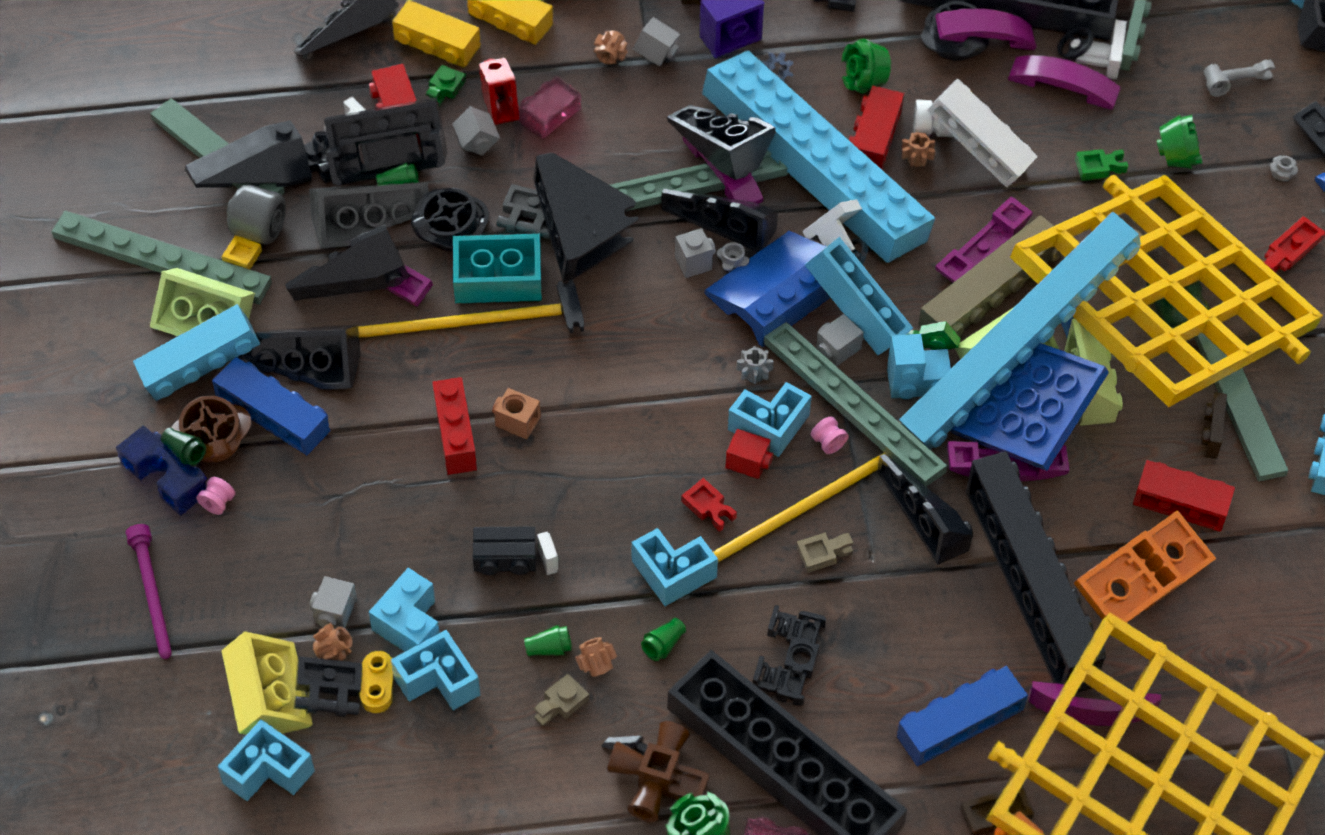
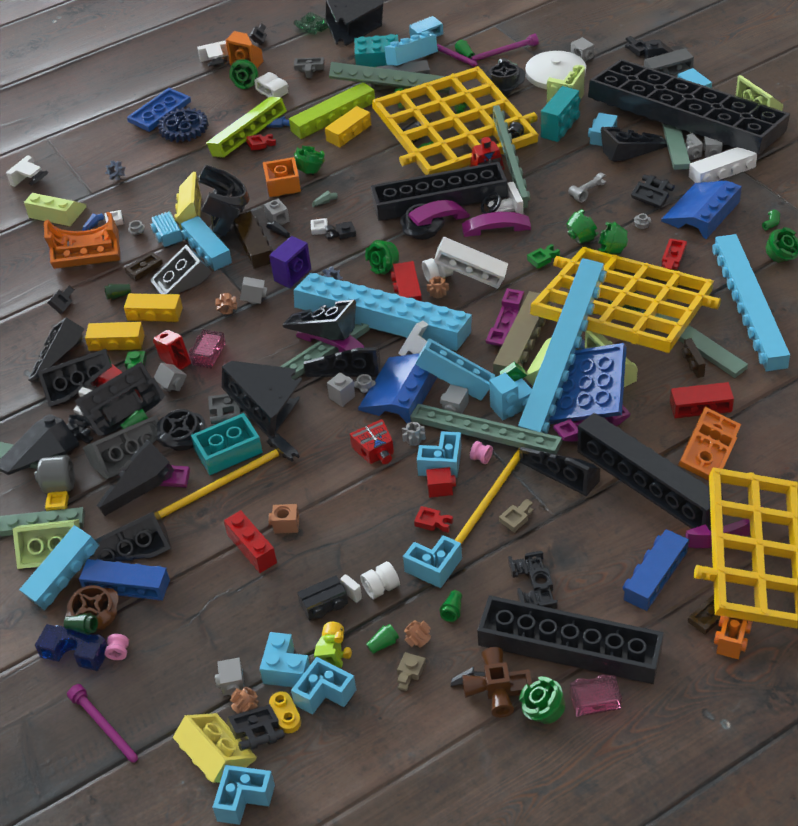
camera: 20 degrees left, 10 degrees down
(338, 75) = (66, 379): none -> black wedge
(475, 622) = (329, 645): none -> lime piece
(589, 559) = (382, 579): none -> white wheel
(693, 354) = (373, 442): none -> red torso
(1215, 183) = (613, 239): none -> green cone

